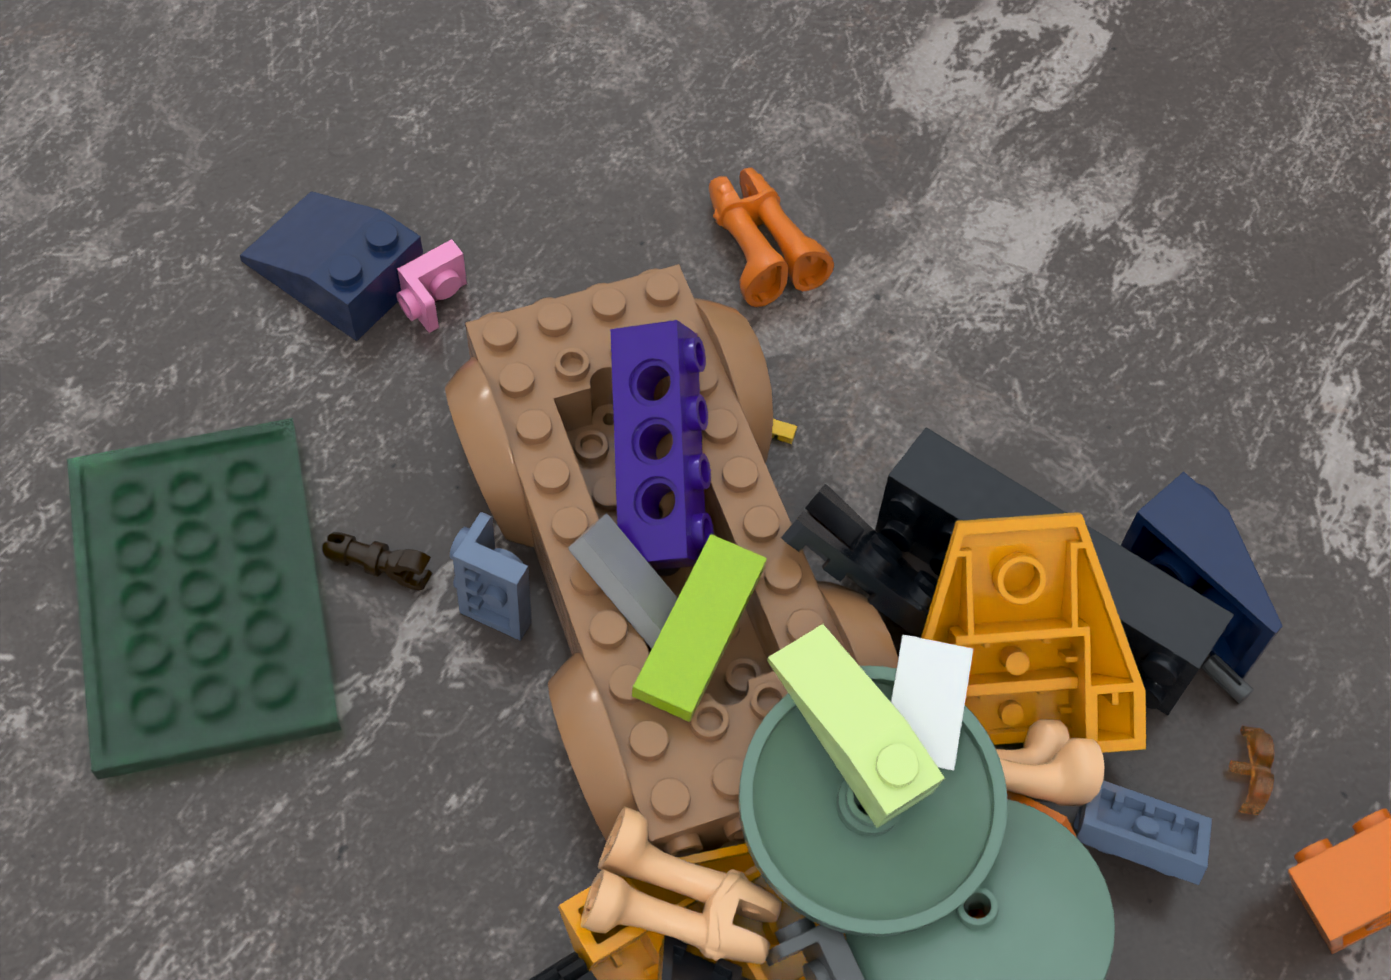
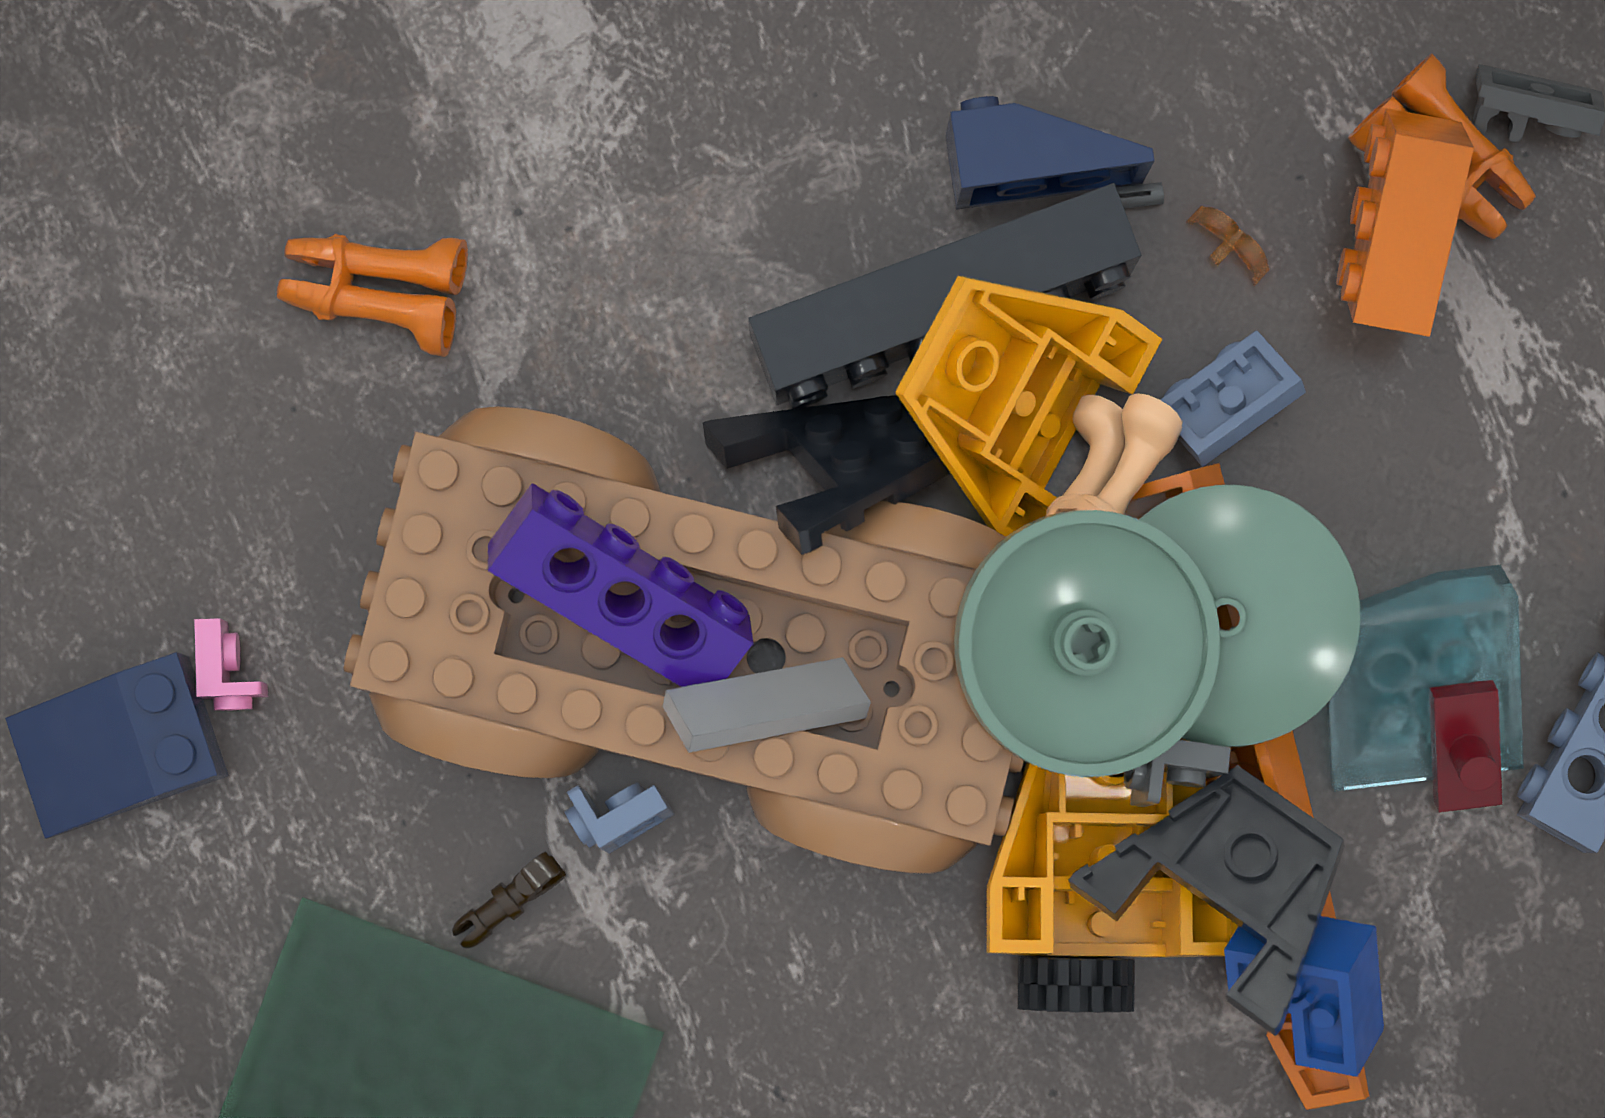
camera: 55 degrees left, 25 degrees up
(631, 855) = (1024, 909): light nougat piece -> none
(699, 628) = (831, 678): lime tile -> none
(784, 431) = (613, 420): yellow piece -> none
(856, 725) = (1029, 625): yellowish green slope -> none
(932, 694) = (1044, 542): white sticker -> none

